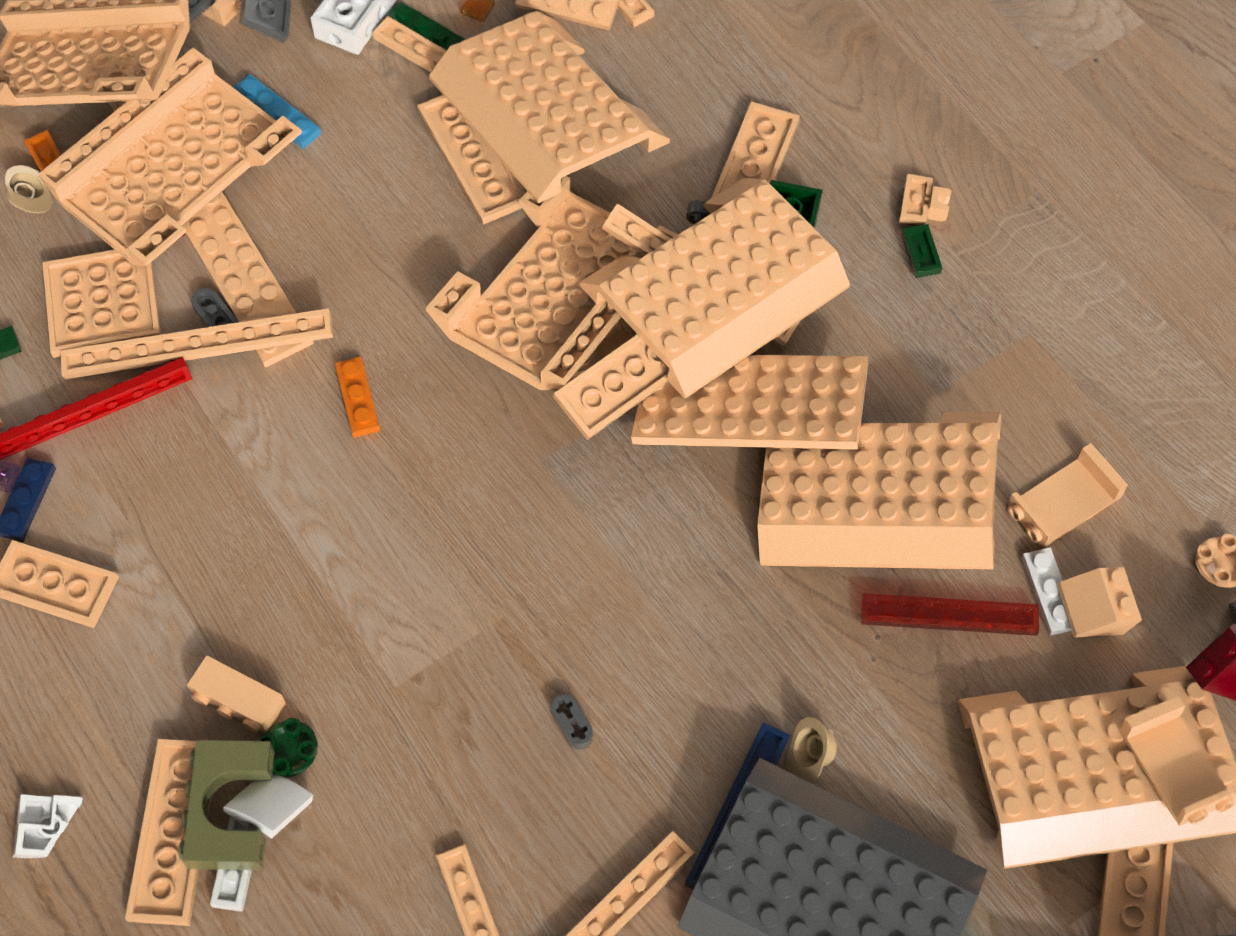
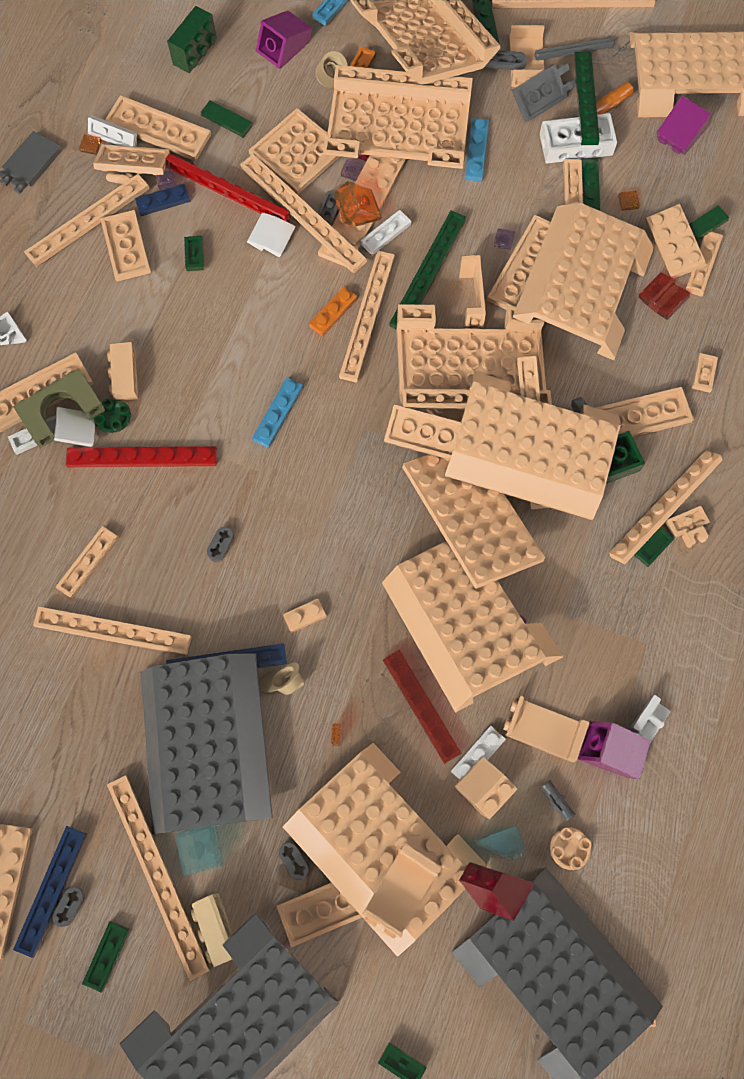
camera: 55 degrees right, 10 degrees up
(138, 506) = (194, 253): none -> dark green plate
(184, 256) = (351, 169): none -> plate
(191, 400) = (271, 234): none -> white slope
(242, 276) = (357, 204): none -> clear orange slope
(302, 273) = (385, 232): none -> white plate
(372, 750) = (141, 456): none -> red plate
(390, 256) = (432, 262): none -> dark green plate
(398, 362) = (367, 316): none -> light nougat plate
(420, 156) = (504, 239): none -> clear purple plate
(443, 544) = (277, 412): none -> dark azure plate
(473, 221) = (471, 268): none -> light nougat panel
(625, 49) = (664, 296): none -> clear red slope
(740, 679) = (304, 615): none -> light nougat plate
(750, 70) = (704, 372): none -> light nougat plate
(883, 210) = (665, 507): none -> light nougat plate
(923, 733) = (335, 737): none -> clear orange tile
(1052, 878) = (289, 863): none -> dark grey beam
(1121, 385) = (650, 718): none -> white panel
(1138, 438) = (614, 749): none -> slope
(1159, 539) = (557, 801): none -> dark grey pin
(1178, 623) = (503, 843): none -> clear light blue slope

